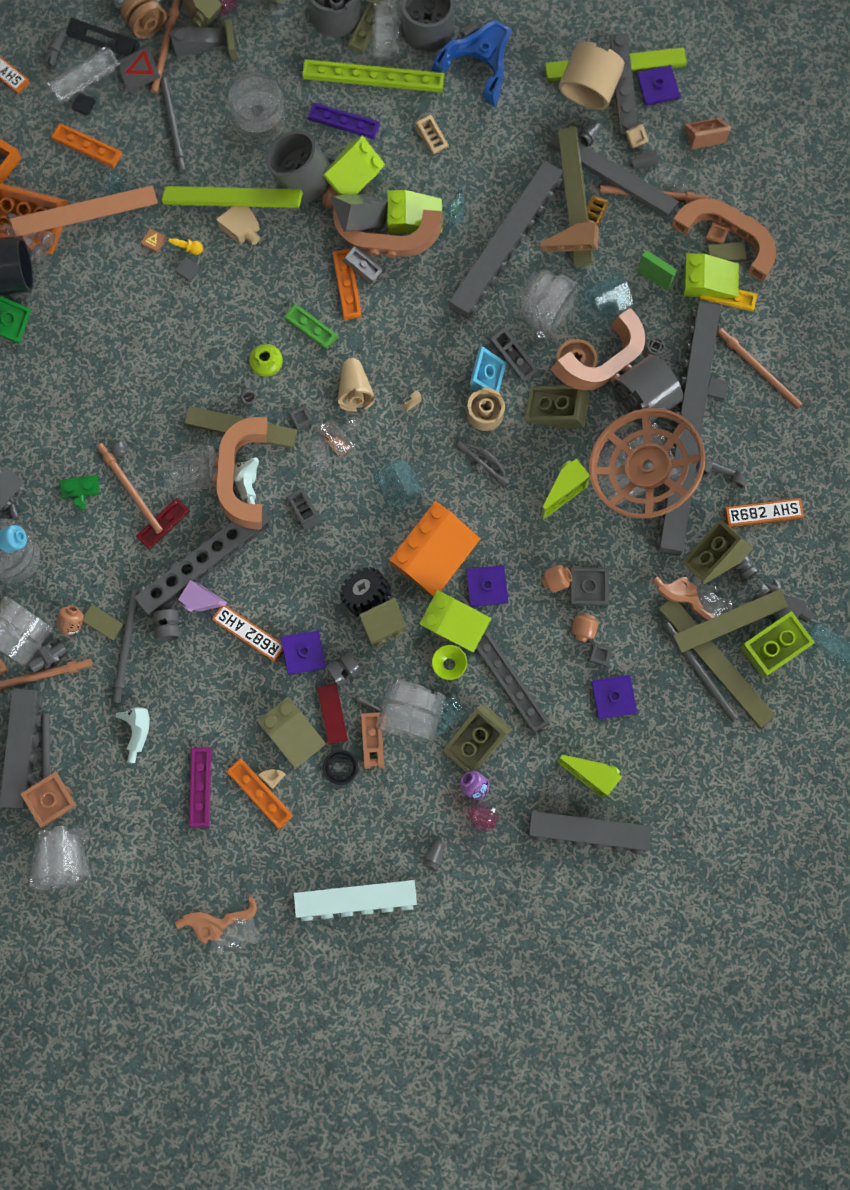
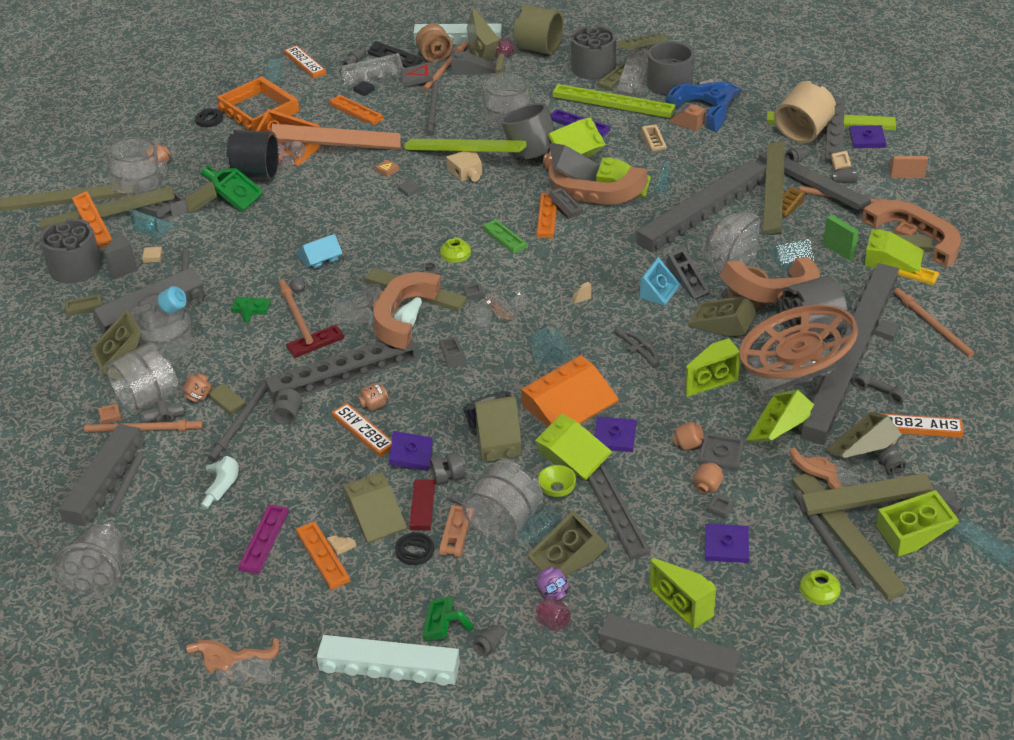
camera: 15 degrees right, 35 degrees down
(49, 799) = (110, 507): nougat bracket -> none
(125, 395) = (320, 251): none -> medium azure slope
(195, 247) = (420, 176): yellow bar -> none
(199, 598) = (326, 392): lavender slope -> none
(247, 593) = (373, 396): none -> nougat head
(354, 387) = (529, 275): tan cone -> none
(386, 844) = (438, 619): none -> green plate
(462, 91) = (690, 117): none -> nougat slope
(488, 419) = (650, 305): tan brick -> none
(575, 238) = (767, 207): medium nougat slope -> none
(637, 545) = (781, 415): none -> lime slope
(693, 733) = (820, 593): none -> lime piece

